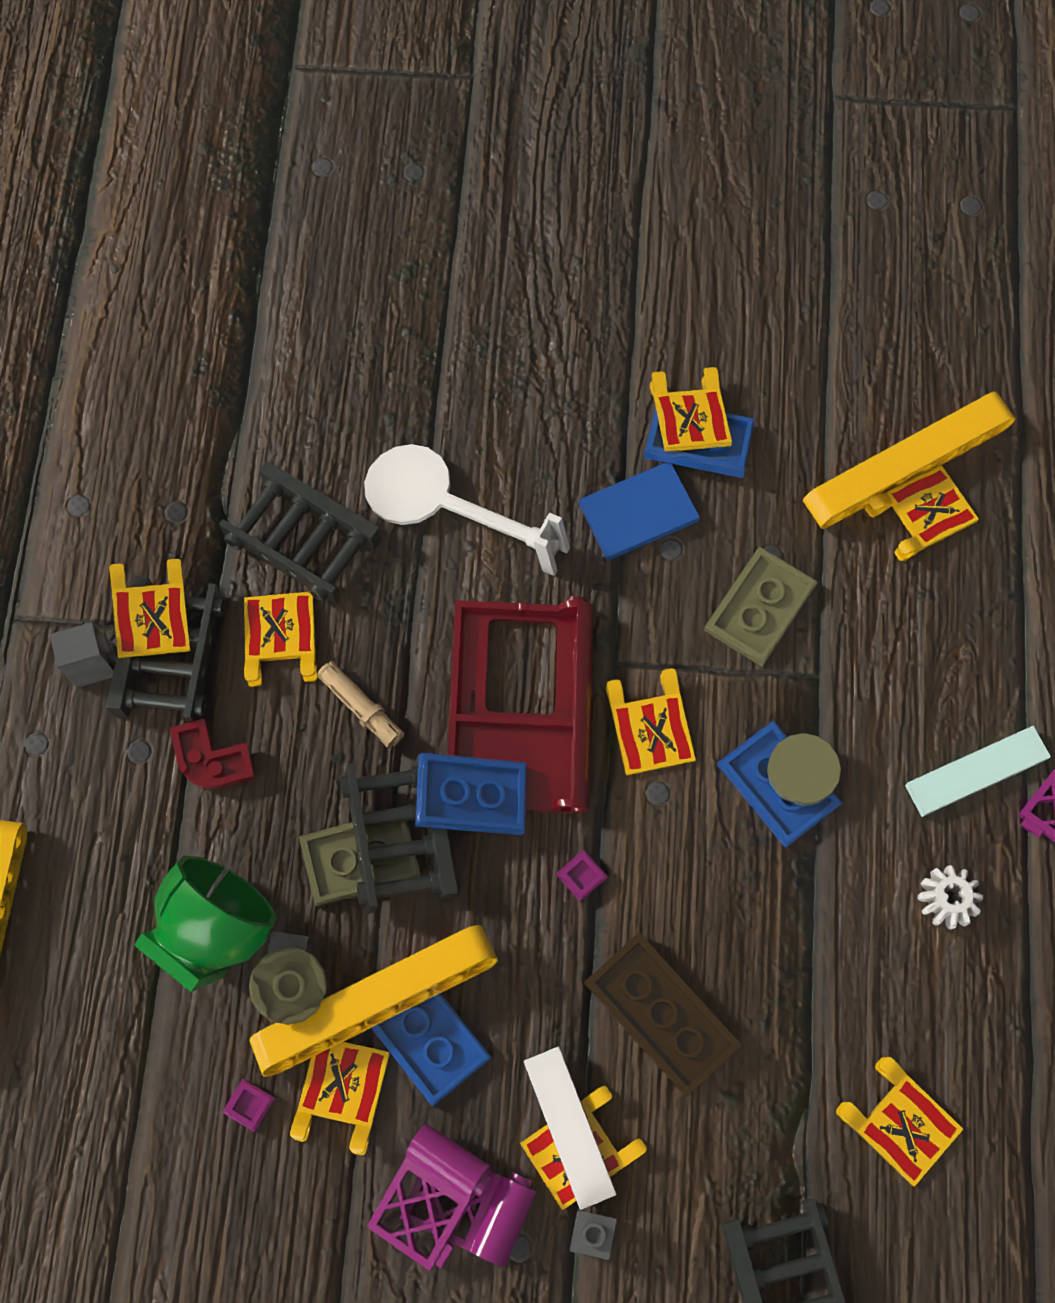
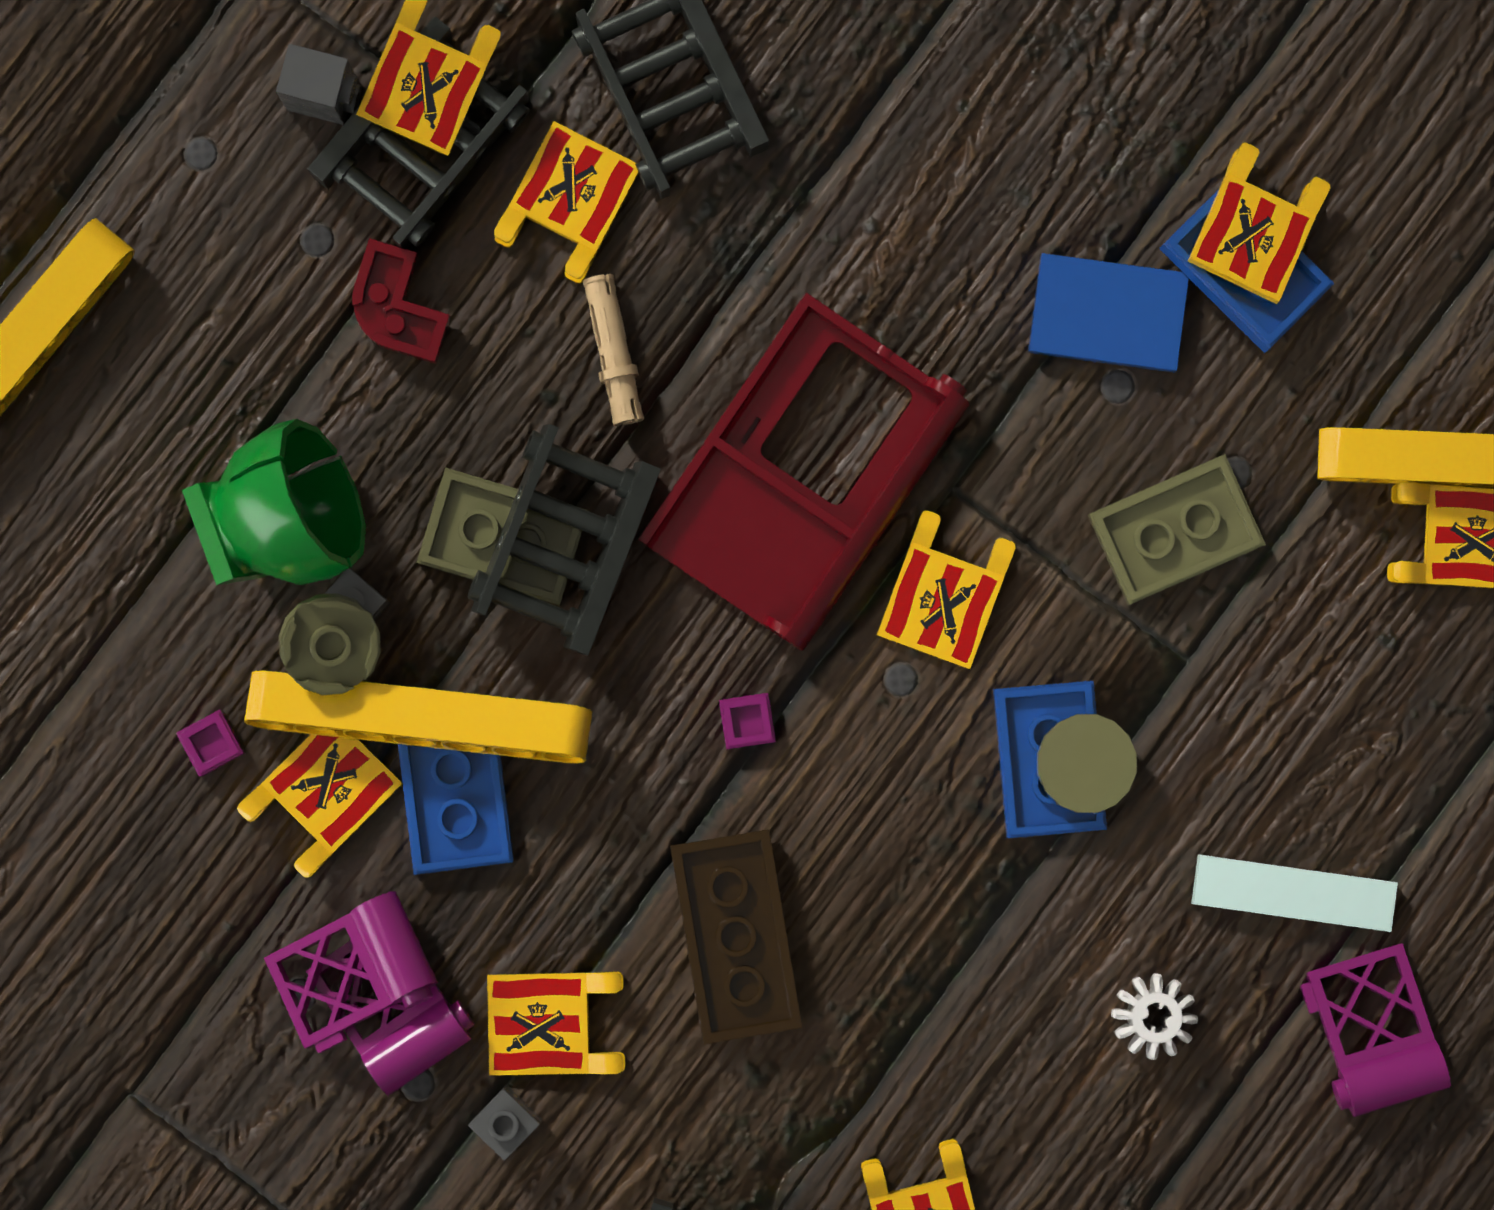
camera: 20 degrees right, 15 degrees up
(415, 483) = (846, 103): white piece -> none
(471, 794) = (675, 548): blue tile -> none
(569, 1128) = (552, 994): white tile -> none

